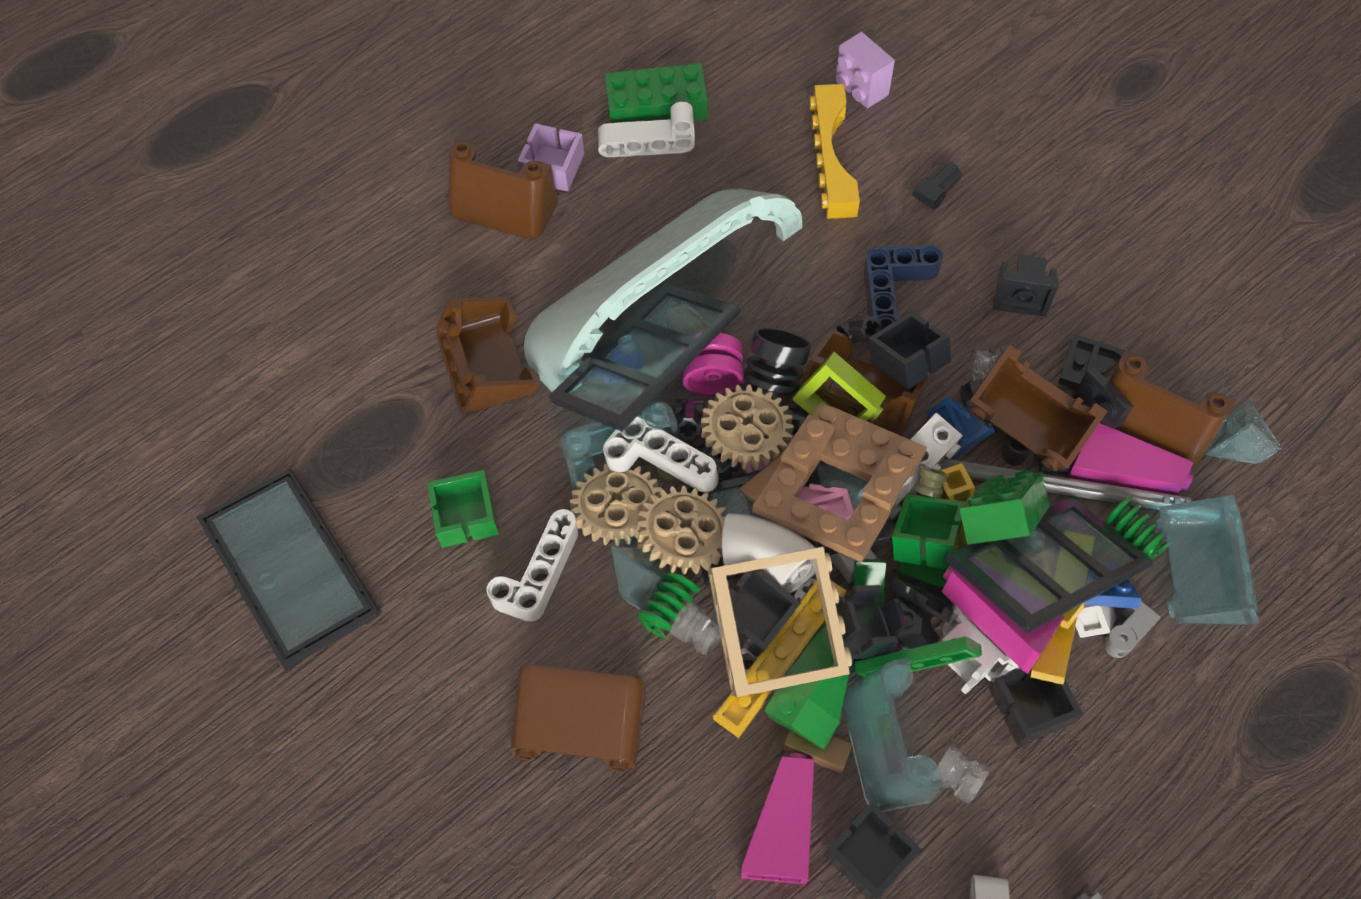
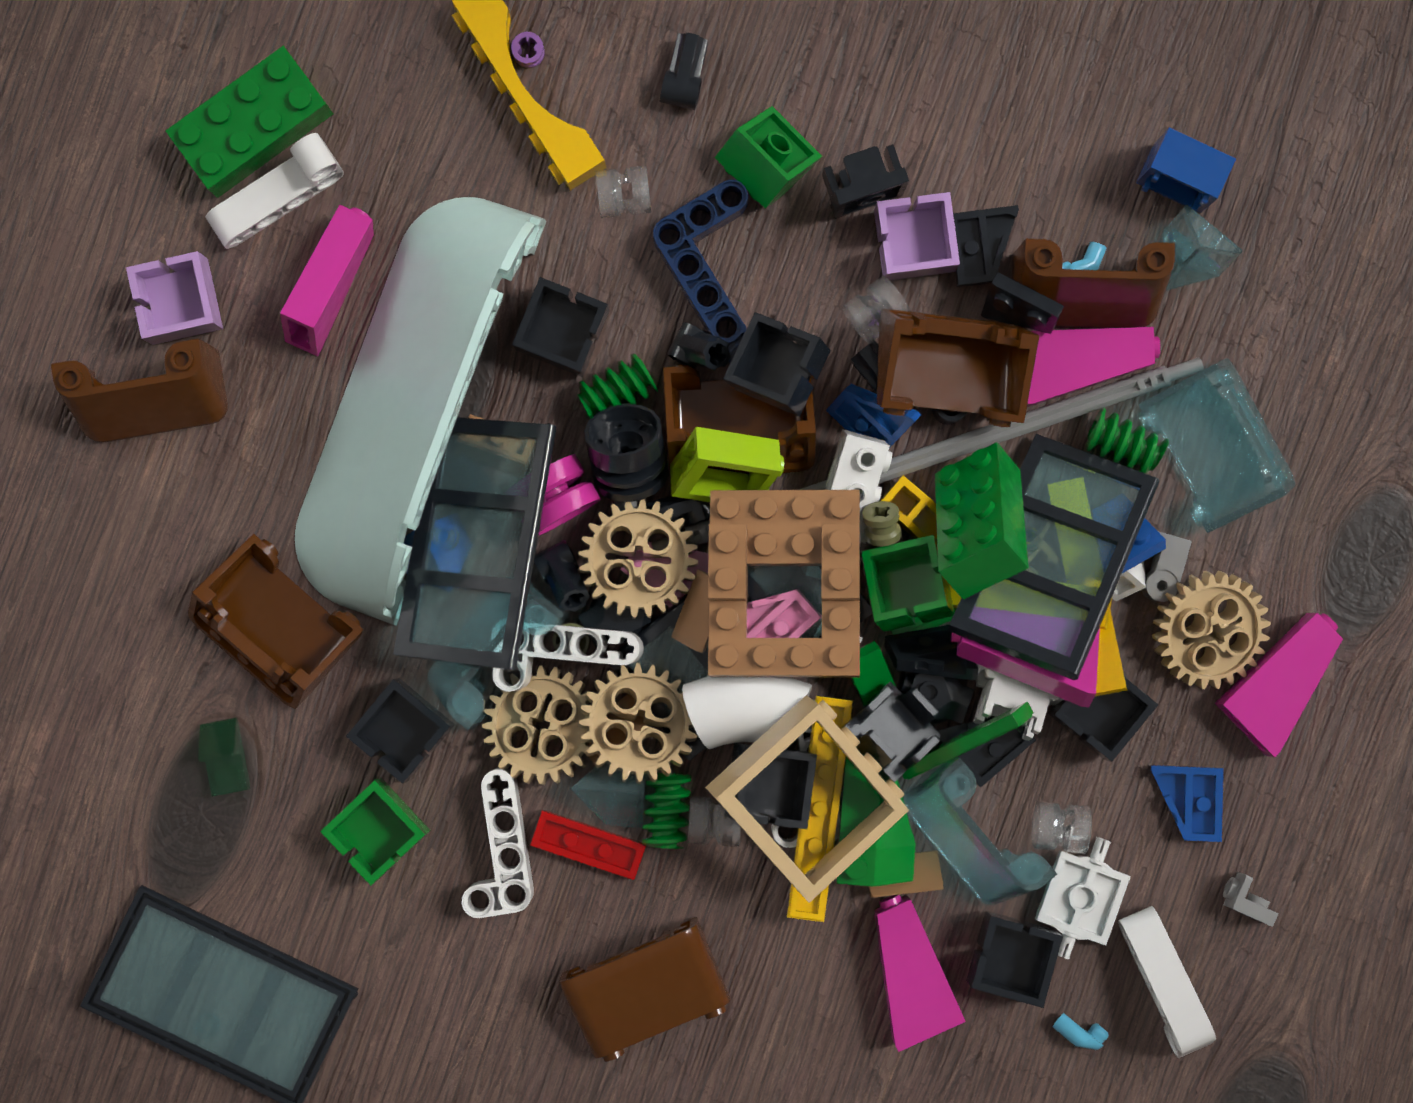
camera: 35 degrees left, 25 degrees up
(399, 421) = (224, 756): none -> clear green slope
(522, 455) = (401, 727): none -> black piece
(600, 599) = (588, 844): none -> red plate
(644, 190) = (326, 280): none -> dark pink slope
(771, 277) = (560, 329): none -> black piece
(804, 327) = (616, 386): none -> green piece
(845, 142) = (517, 51): none -> medium lavender bush
(861, 226) = (610, 191): none -> clear wheel
(934, 690) = (992, 756): none -> black wing
(952, 841) = (1083, 897): none -> white plate
(965, 250) = (767, 156): none -> green slope
(1044, 342) = (916, 240): none -> lavender piece
(1078, 813) = (1193, 799): none -> blue wing
(1146, 719) = (1219, 658): none -> tan gear
(1184, 762) = (1279, 687): none -> dark pink slope
(1259, 377) = (1185, 170): none -> blue container

